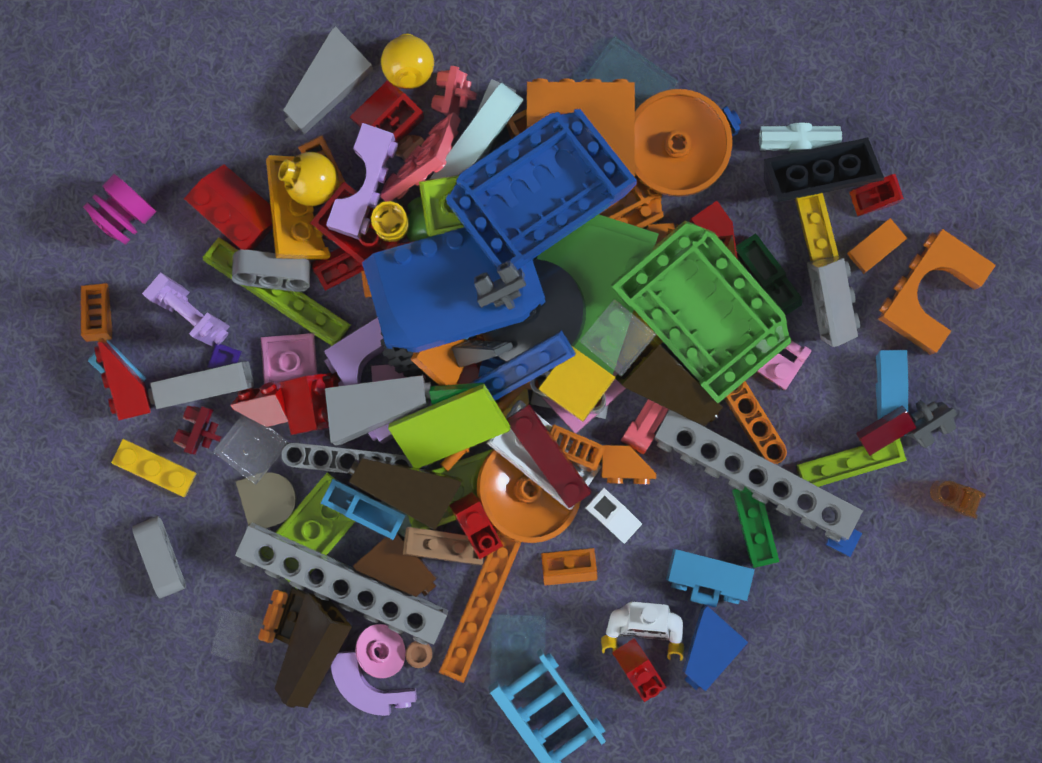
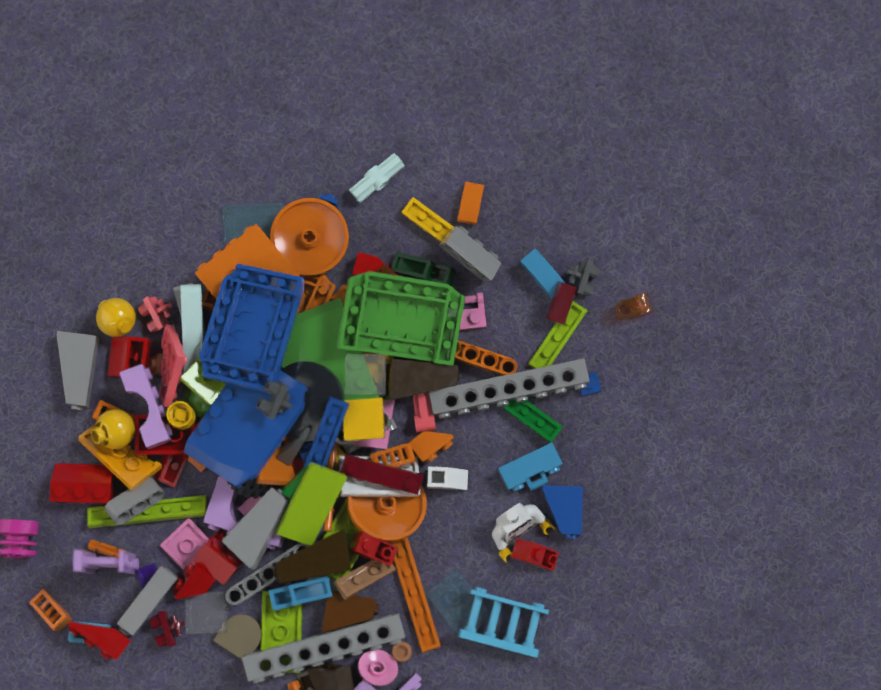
camera: 35 degrees left, 5 degrees down
(153, 468) = (158, 672): yellow plate -> none
(202, 295) = (103, 548): none -> orange axle
(569, 566) = (446, 529): orange slope -> none
(821, 170) = (403, 186): black slope -> none
(876, 195) = (447, 175): red slope -> none
(904, 312) = (517, 228): orange arch -> none

